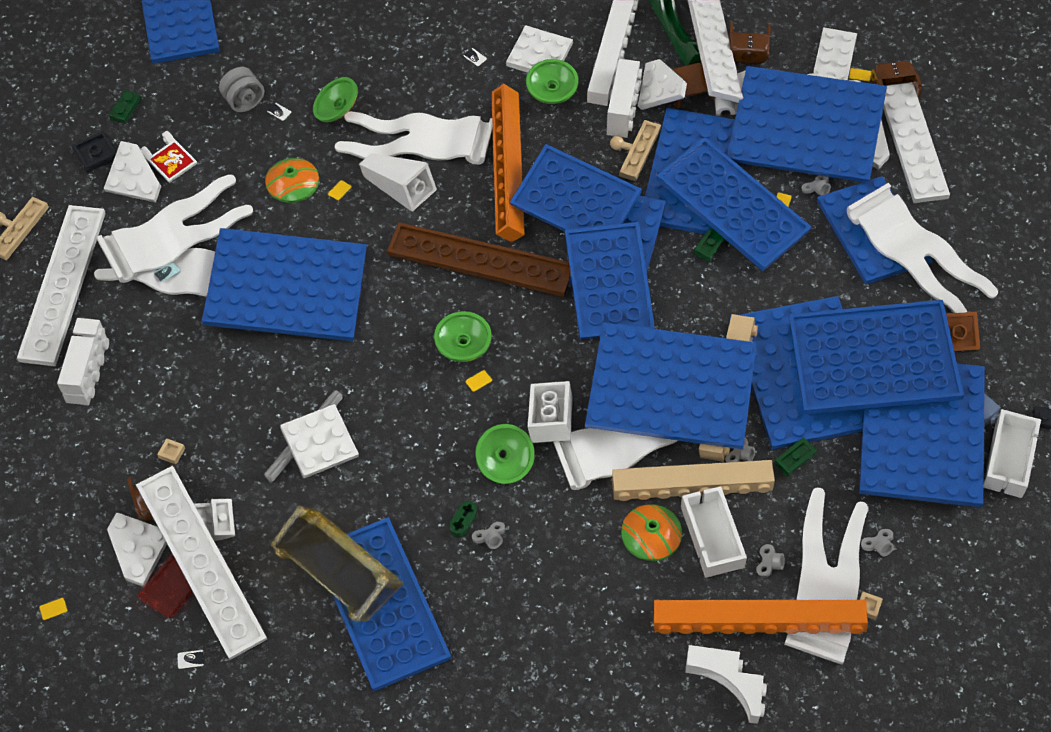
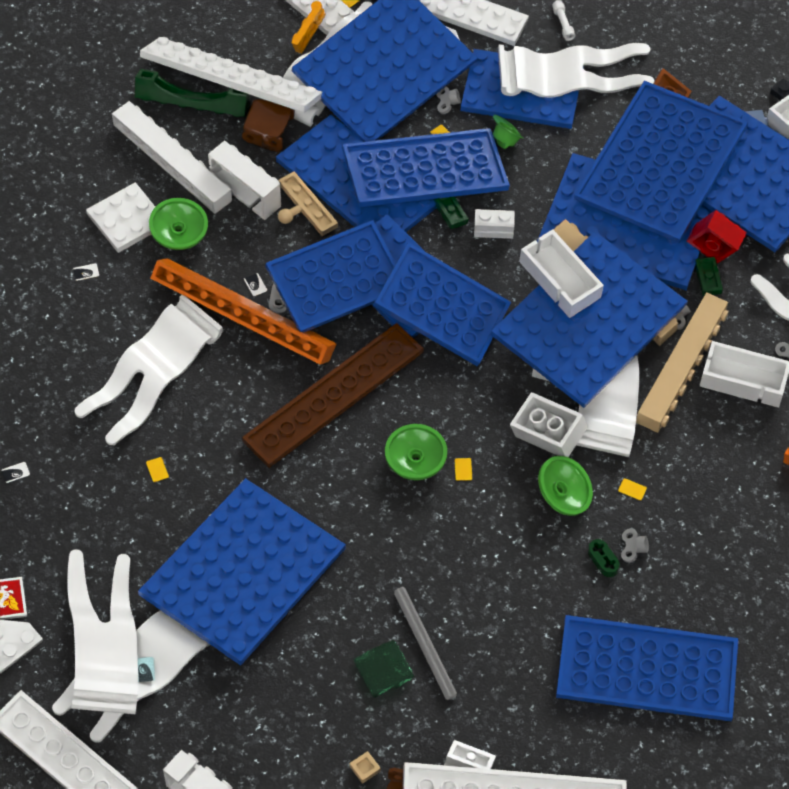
camera: 60 degrees left, 0 degrees up
(263, 419) = (384, 668): none -> clear green slope
(292, 180) = (115, 513): dish -> none
(319, 441) = (444, 631): white plate -> none
(335, 99) = (42, 408): bright green dish -> none
(336, 562) = (594, 679): clear smoke windscreen -> none
(400, 178) = (189, 410): white slope -> none
(545, 508) = (632, 489): none -> yellow sticker
(648, 542) = (709, 431): orange dish -> none
(660, 85) = (256, 140): white plate -> none
(684, 335) = (561, 273): none -> white piece
(719, 277) = (494, 223): none -> white brick
(750, 46) = (259, 53): reddish brown piece -> none
(802, 59) = (308, 27): none -> light orange plate
(818, 238) = (505, 133): none -> bright green piece
(832, 437) = (716, 236): none -> red brick
(960, 229) = (567, 31): none -> white bar

